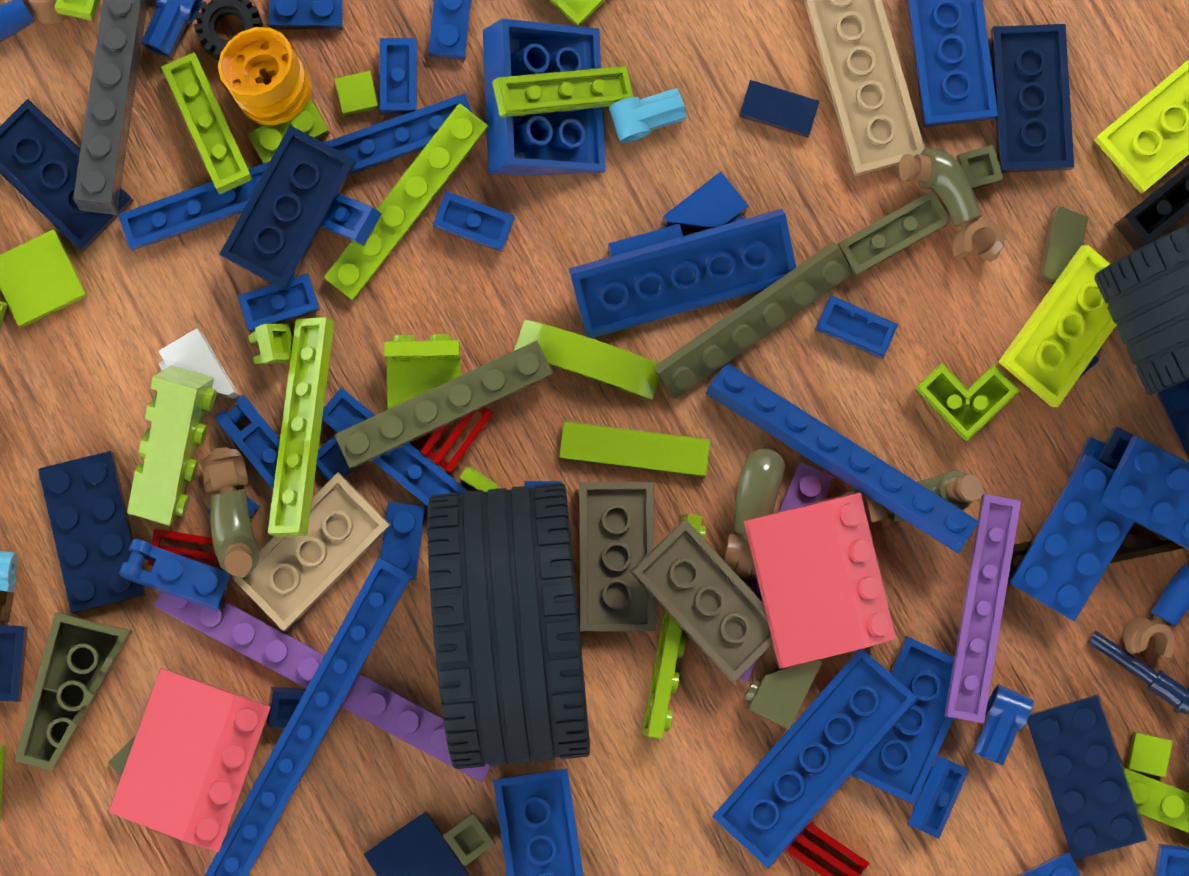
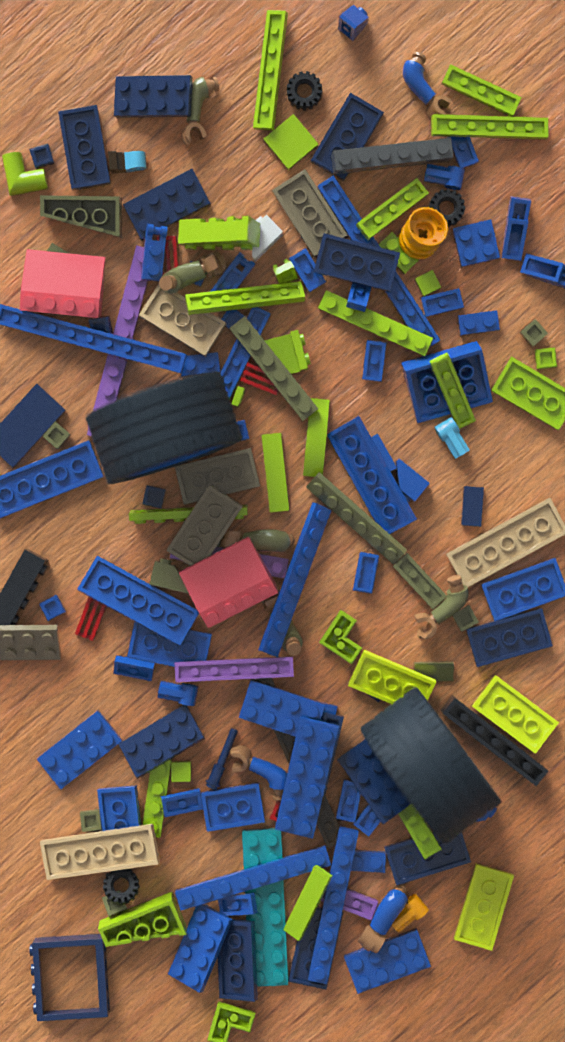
camera: 80 degrees right, 5 degrees up
(171, 276) = (308, 210): none -> dark tan plate
(626, 683) = (154, 496): none -> dark blue tile

